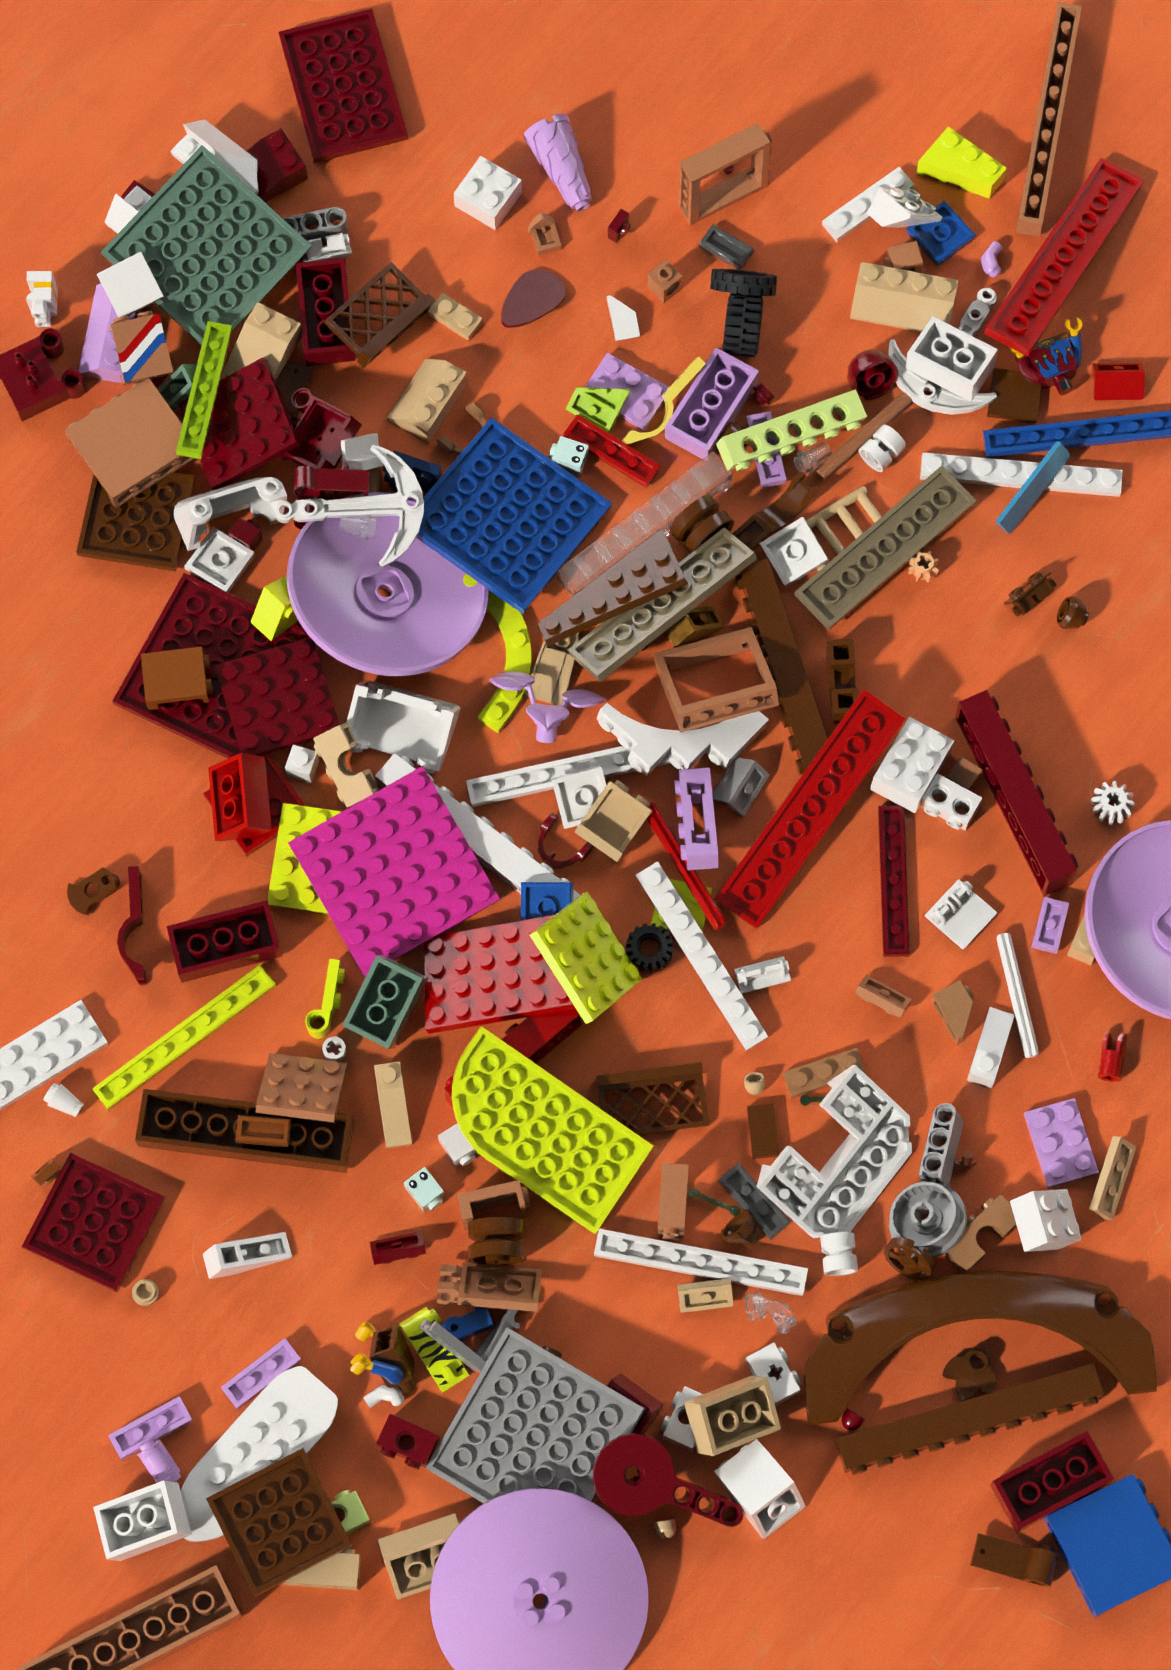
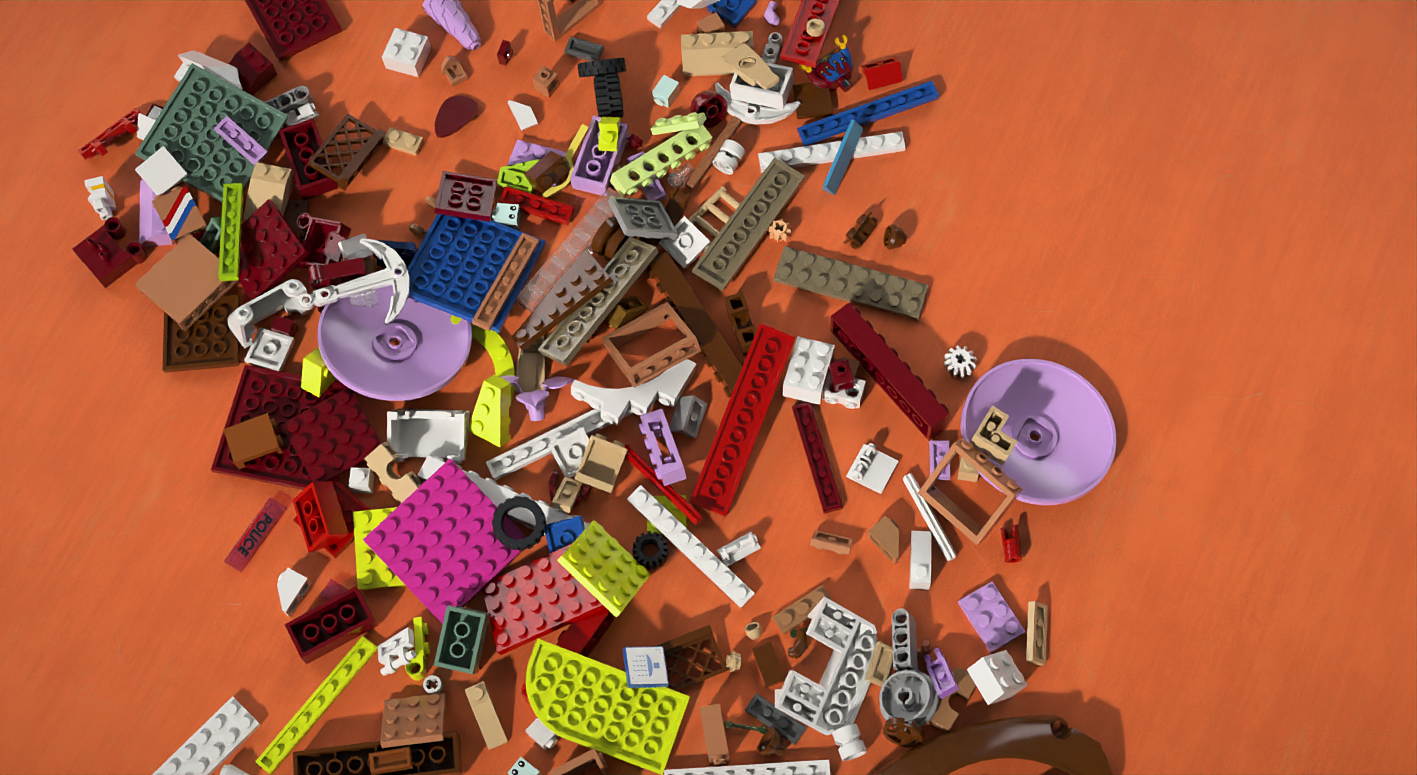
camera: 10 degrees left, 5 degrees down
(61, 214) = (104, 139): none -> red hinge
(78, 892) = (214, 617): reddish brown piece -> none
(132, 922) = (259, 628): dark red piece -> none
(151, 799) = (255, 534): none -> clear pink tile
(183, 883) = (291, 590): none -> white slope
(234, 897) = (332, 590): none -> clear pink plate
(243, 267) = (241, 140): none -> lavender plate
(296, 990) = (394, 647): none -> white plate
(428, 398) = (397, 201): tan slope -> none
(489, 718) = (491, 411): none -> neon yellow wedge
(493, 845) = (507, 506): none -> black tyre
(521, 416) = (465, 196): none -> dark red plate
(547, 548) = (505, 282): none -> nougat plate
(560, 849) = (566, 494): none -> tan plate
(607, 1095) = (645, 667): none -> white tile
(636, 410) = (547, 172): none -> reddish brown brick
(719, 1116) = (733, 661): none -> tan plate
(731, 378) = (609, 133): none -> neon yellow slope
(747, 506) = (642, 218): none -> light grey plate
(809, 1118) = (801, 645): none -> reddish brown arm
(821, 335) = (666, 91): none -> light aqua brick
(826, 386) = (678, 123): none -> yellowish green plate
(903, 1166) = (880, 664): none -> tan tile
(941, 334) = (750, 67): none -> tan piece
(952, 783) = (841, 375): none -> dark red brick
(976, 1198) = (941, 674): none -> medium lavender hinge
(998, 660) = (851, 283): none -> dark tan plate
(1042, 300) = (815, 27): none -> tan tile
(1049, 997) = (951, 510): none -> nougat window
(1118, 915) = (990, 438): none -> tan brick

